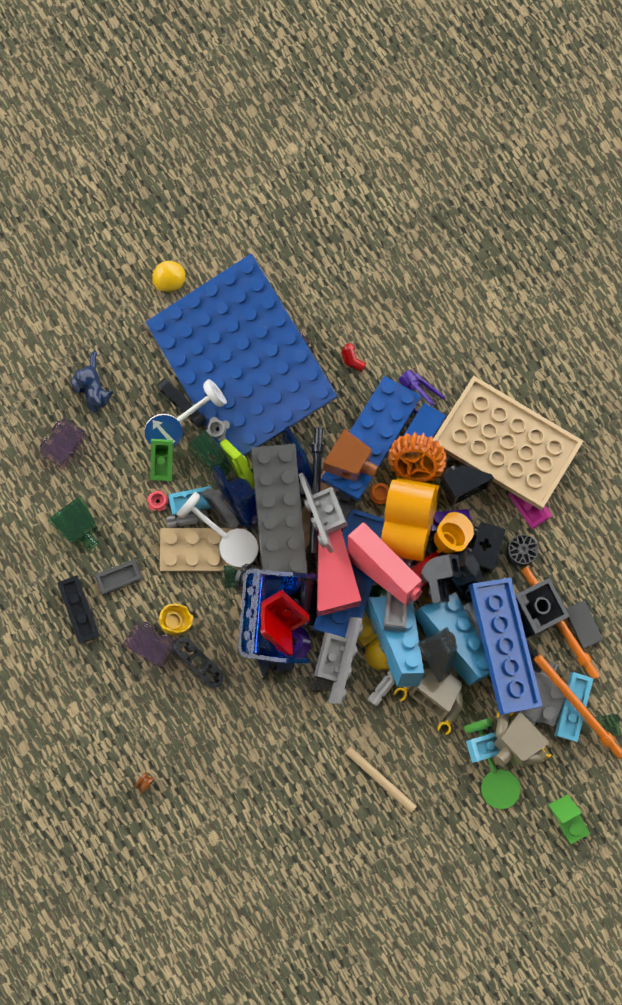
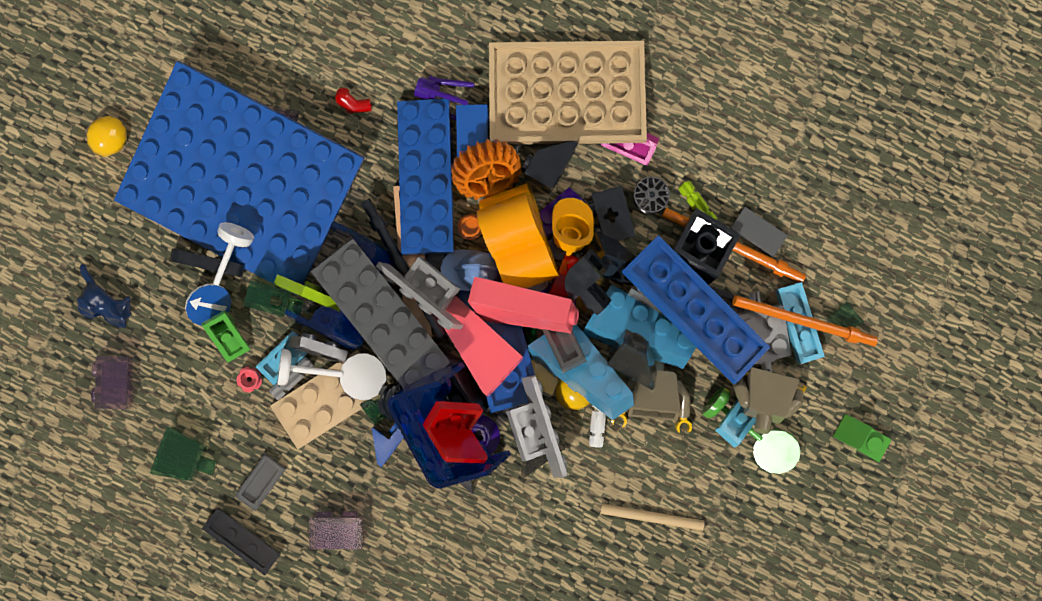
camera: 30 degrees left, 10 degrees up
(175, 619) = (346, 490): yellow hair -> none
(206, 662) = (414, 516): black beam -> none
(223, 425) = (257, 273): light grey plate -> none
(223, 607) = (384, 445): none -> slope
(350, 458) = (418, 216): dark orange torso -> none
(359, 513) = (466, 264): none -> medium blue piece
(552, 572) = (694, 198): none -> lime axle

